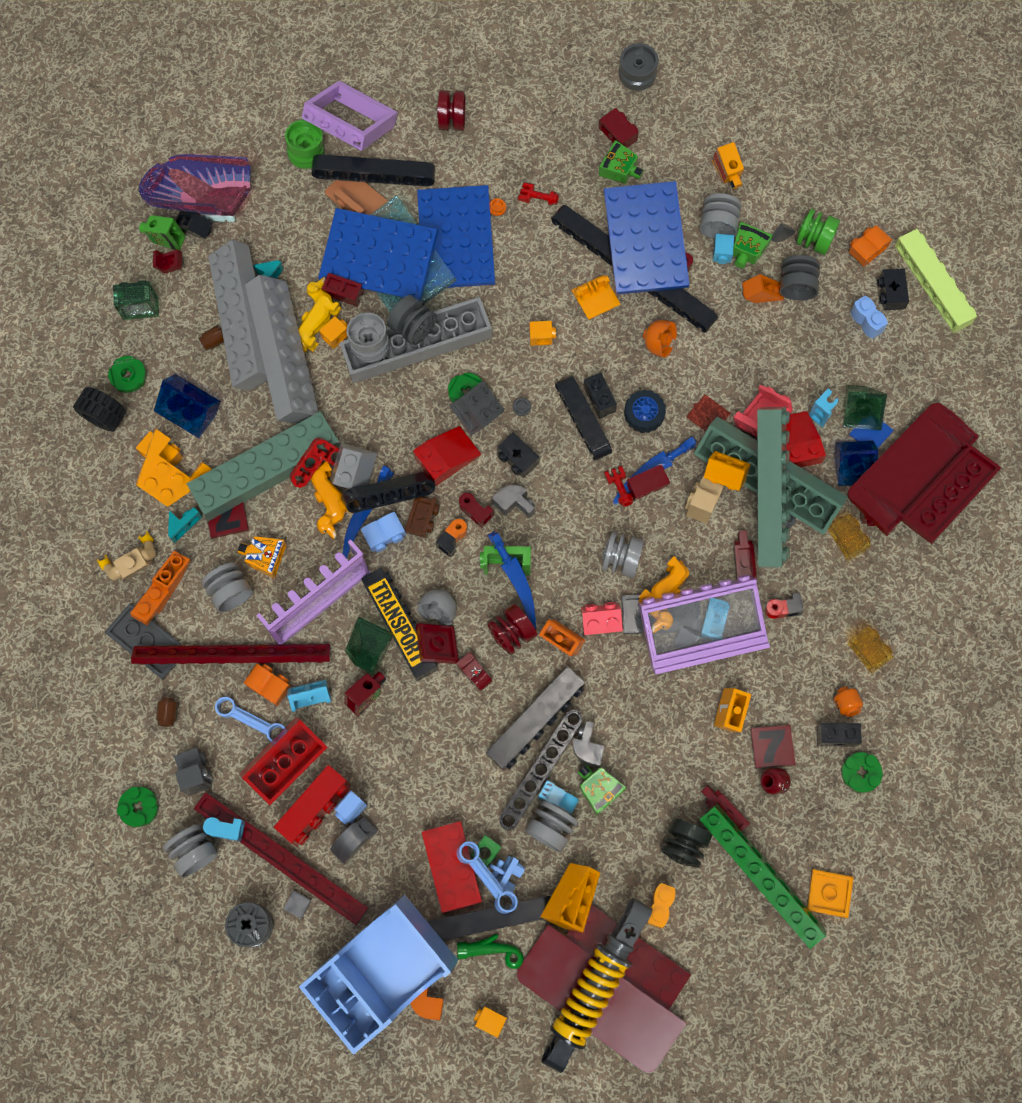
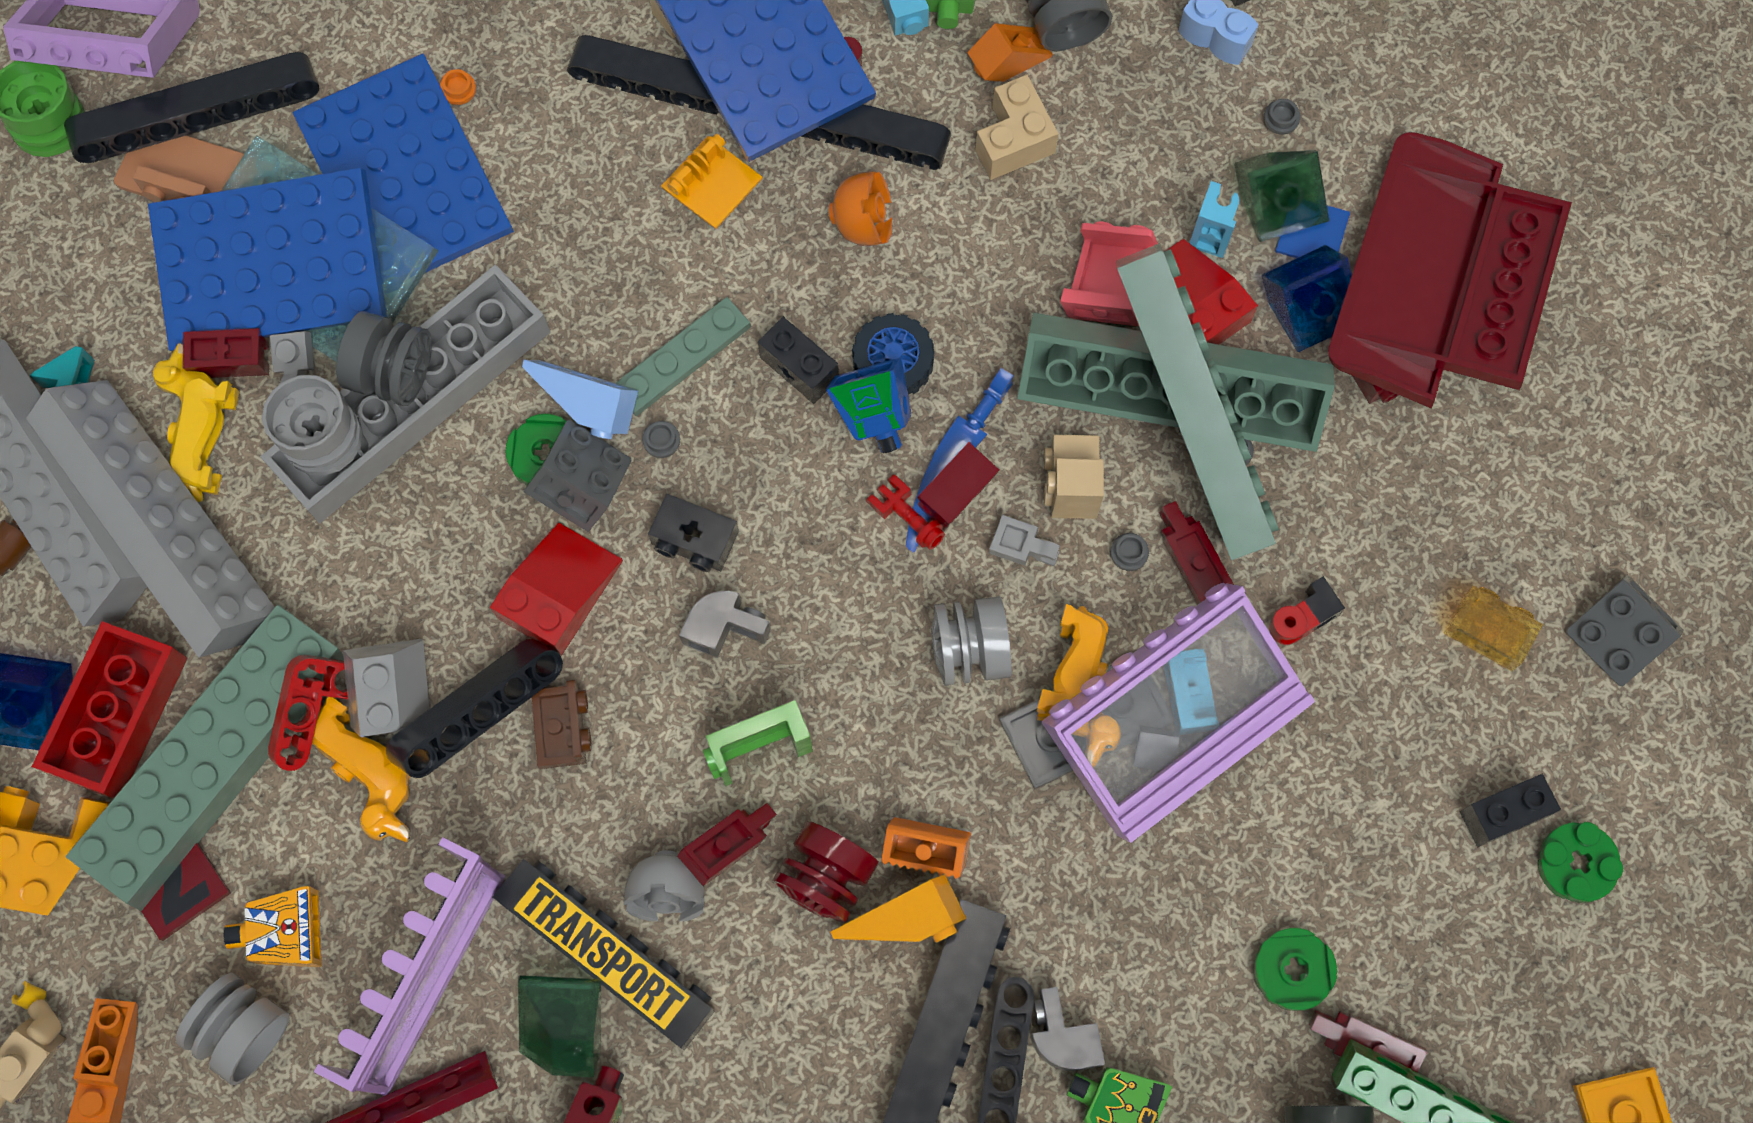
camera: 25 degrees left, 0 degrees up
(178, 528) = (87, 948): teal slope -> none
(229, 428) = (110, 710): none -> red brick
(334, 332) = (241, 440): light orange brick -> none
(358, 518) = (438, 783): blue sword -> none
(371, 301) = (292, 354): none -> light grey plate
(383, 531) = (498, 787): light blue brick -> none
(437, 643) = (693, 961): dark red tile -> none
(454, 532) = (631, 740): leg -> none
(473, 598) = (726, 843): none -> dark red hinge
(474, 671) = (787, 985): dark red leg -> none
(475, 510) = (656, 672): dark red leg -> none
(495, 374) = (587, 399): none -> light blue slope
(516, 576) = (790, 766): blue sword -> none
(526, 196) = (504, 38): red hinge -> none
(542, 333) = (640, 287): light orange brick -> none
(544, 663) = (911, 917): none -> light orange slope
(547, 372) = (685, 353): none -> sand green plate
(584, 418) = (787, 413): black beam -> none
(601, 618) = (982, 777): coral bracket -> none
(625, 429) = (873, 402): none -> torso
(665, 520) = (1018, 541): none -> light grey plate
(706, 411) = (1007, 315): clear red piece -> none
(715, 545) = (1129, 552): none -> dark grey plate
(716, 757) = (1309, 952): none -> green plate
(727, 471) = (1094, 406): light orange brick -> none
(732, 710) = (1300, 849): light orange brick -> none
(751, 331) = (1023, 130): none -> tan brick
(772, 746) = (1399, 885): dark red tile -> none
(775, 781) = (1437, 949): dark red head -> none
(848, 701) = (1497, 741): orange head -> none
(849, 537) = (1363, 437): clear yellow brick -> none
(881, 371) = (1282, 116): none -> dark grey plate
(934, 676) = (1625, 631): none -> dark grey bracket

